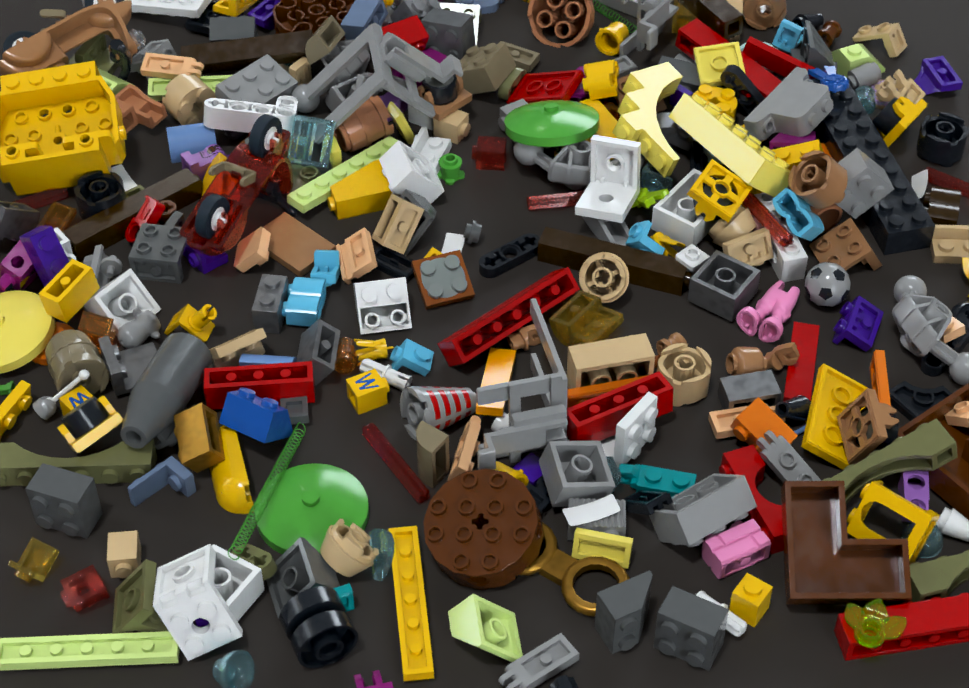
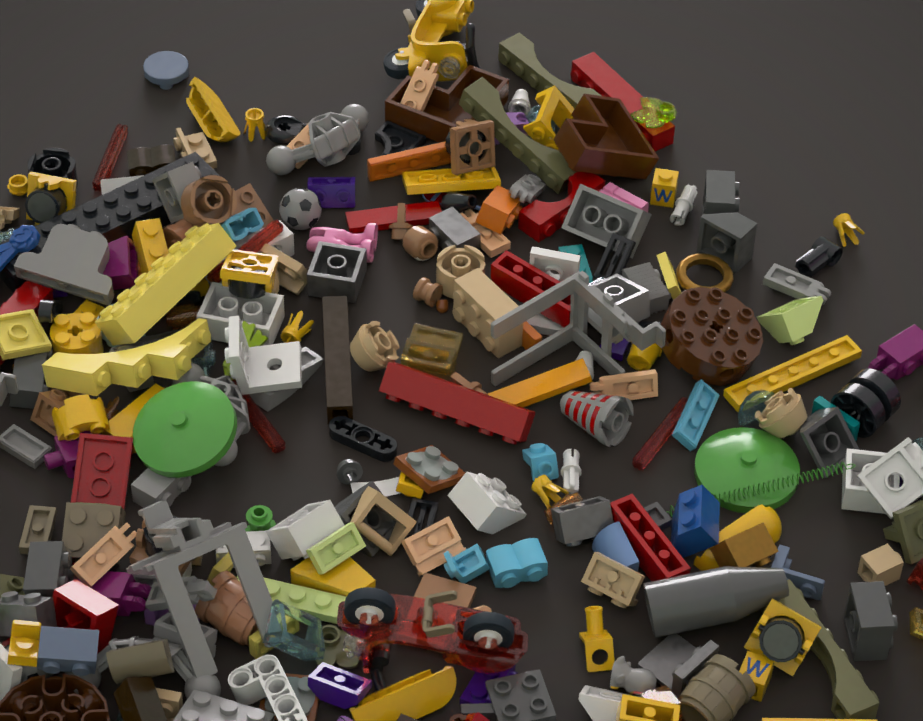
camera: 115 degrees left, 0 degrees up
(46, 405) = (767, 705): hinge -> none
(258, 558) = (835, 479): olive beam -> none
(269, 302) = (537, 585): flat silver brick -> none
(367, 391) = (601, 474): yellow brick -> none
(374, 178) = (336, 548): none -> yellowish green plate
(397, 491) = (695, 415): none -> medium azure tile
(432, 454) = (655, 395): dark tan brick -> none
(439, 49) = (103, 555): none -> light nougat hinge
(490, 153) = (220, 495): clear red brick -> none
(591, 511) = (648, 281): white sticker -> none
(639, 239) = (308, 333): medium azure bracket -> none
(692, 258) = (315, 299): white bracket -> none

